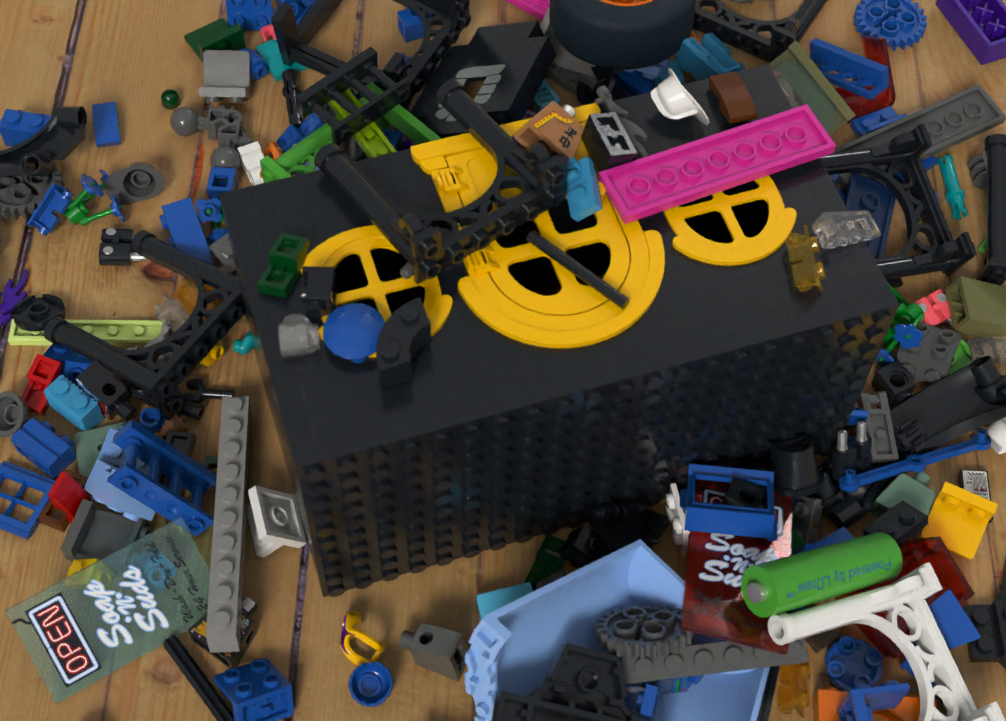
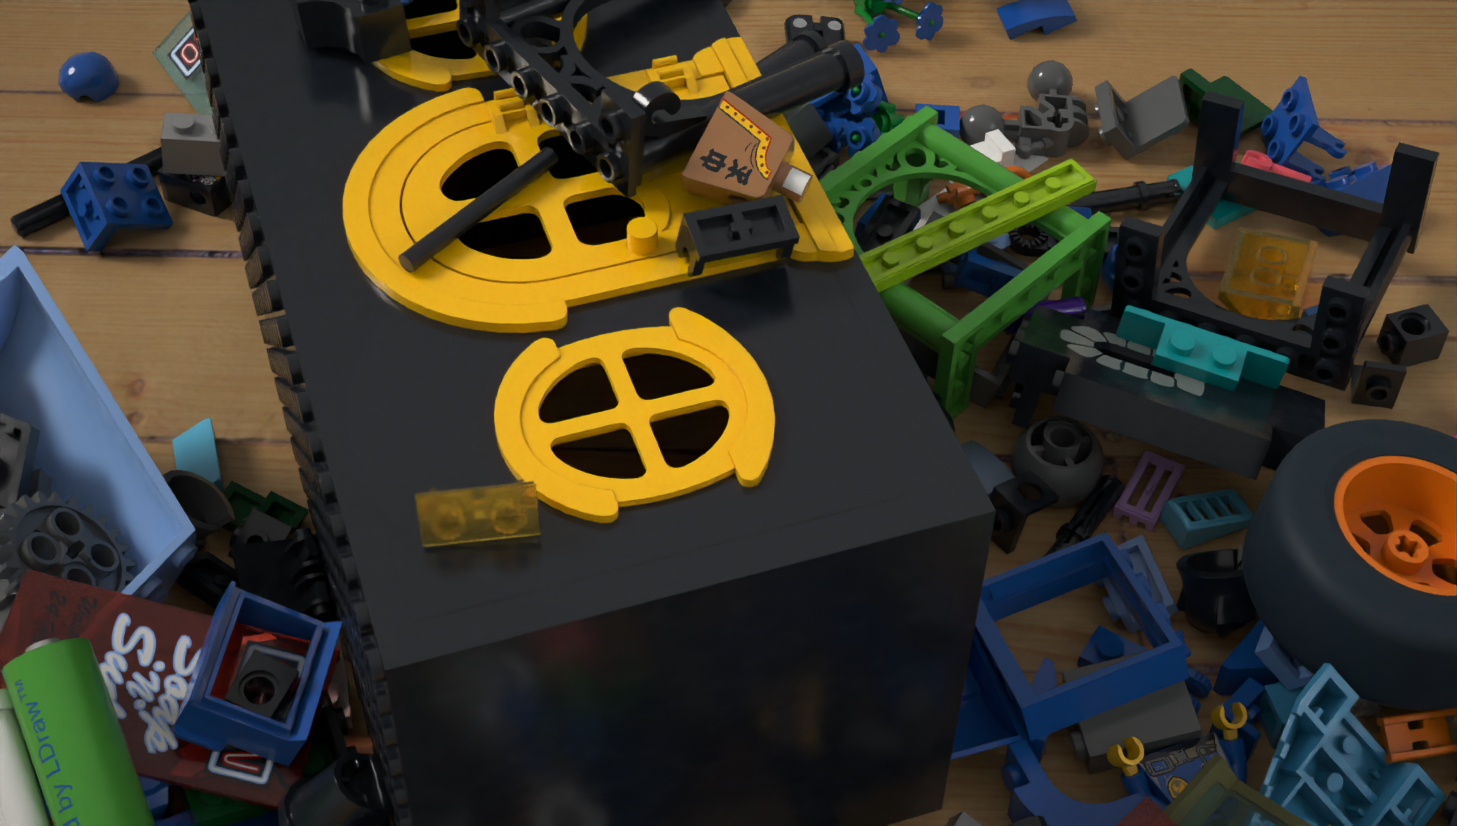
camera: 90 degrees right, 10 degrees down
(134, 183) = (926, 42): dark grey piece -> none
(170, 99) = (1098, 73): dark green hinge -> none
(258, 65) = (1179, 149): blue brick -> none
(346, 77) = (1070, 154): black fence -> none
(350, 629) = (184, 288): yellow piece -> none
(371, 684) = (103, 315): blue hair -> none
(384, 33) = (1267, 275): none -> clear yellow slope
(437, 649) = (135, 371): dark grey torso -> none
(468, 60) = (1201, 352): none -> teal bracket
(582, 188) = (615, 204): dark azure plate -> none
(631, 128) = (790, 274): dark grey piece -> none
(675, 101) = (850, 337): white piece -> none
(715, 163) = (712, 400): dark pink plate -> none
(733, 97) = (872, 429): reddish brown slope -> none
(842, 228) = (546, 544): clear slope -> none

